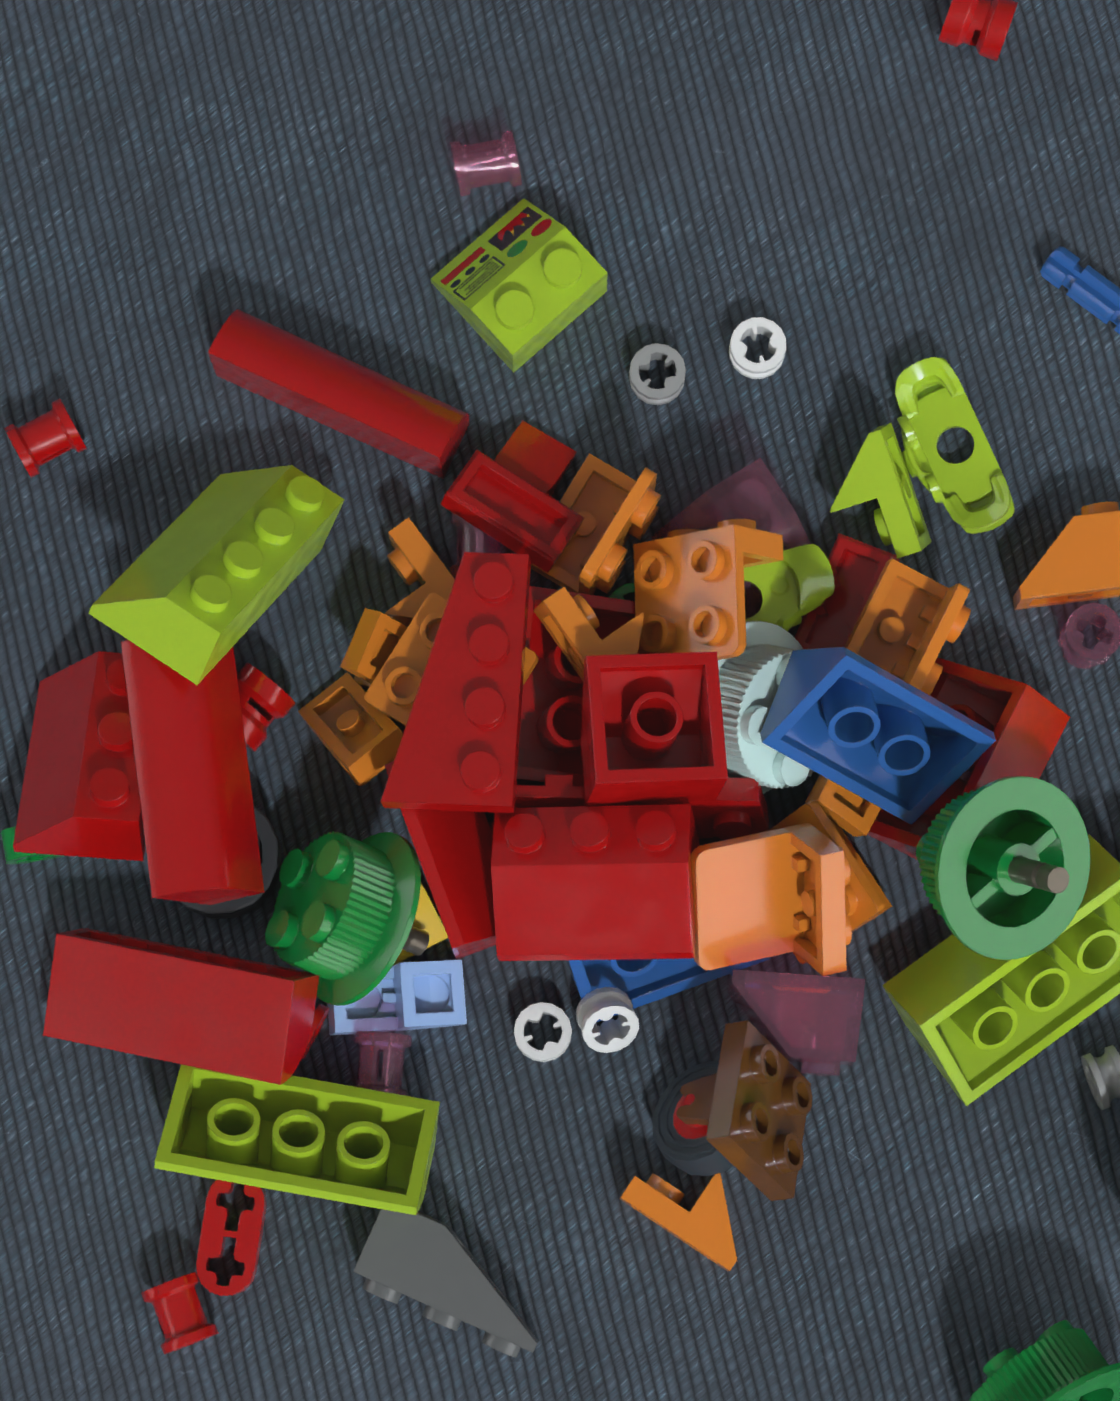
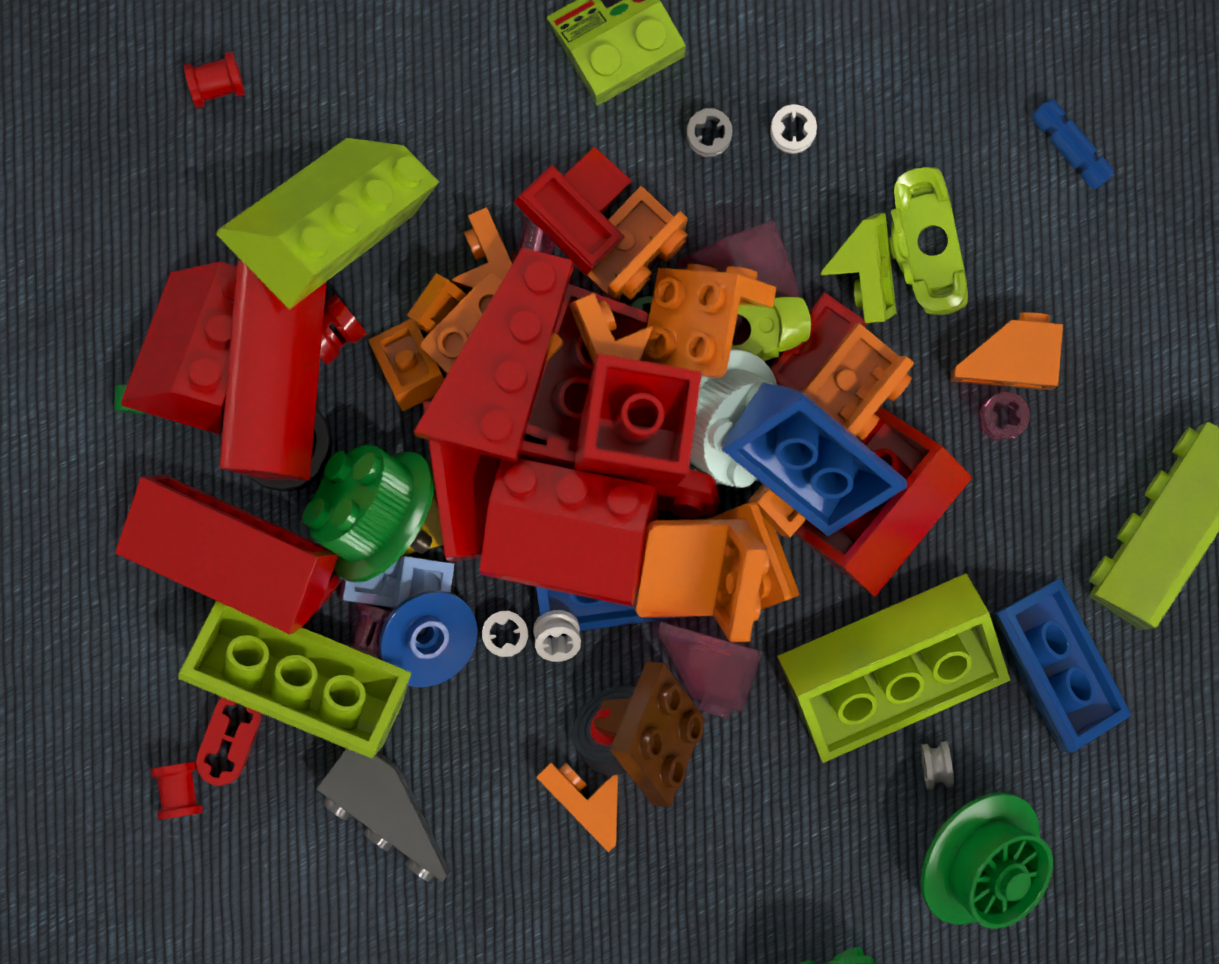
camera: 10 degrees right, 5 degrees up
(338, 392) = (453, 93): red brick -> none
(472, 1061) = (441, 649): none -> blue dish
(1006, 866) = (892, 588): piece -> none

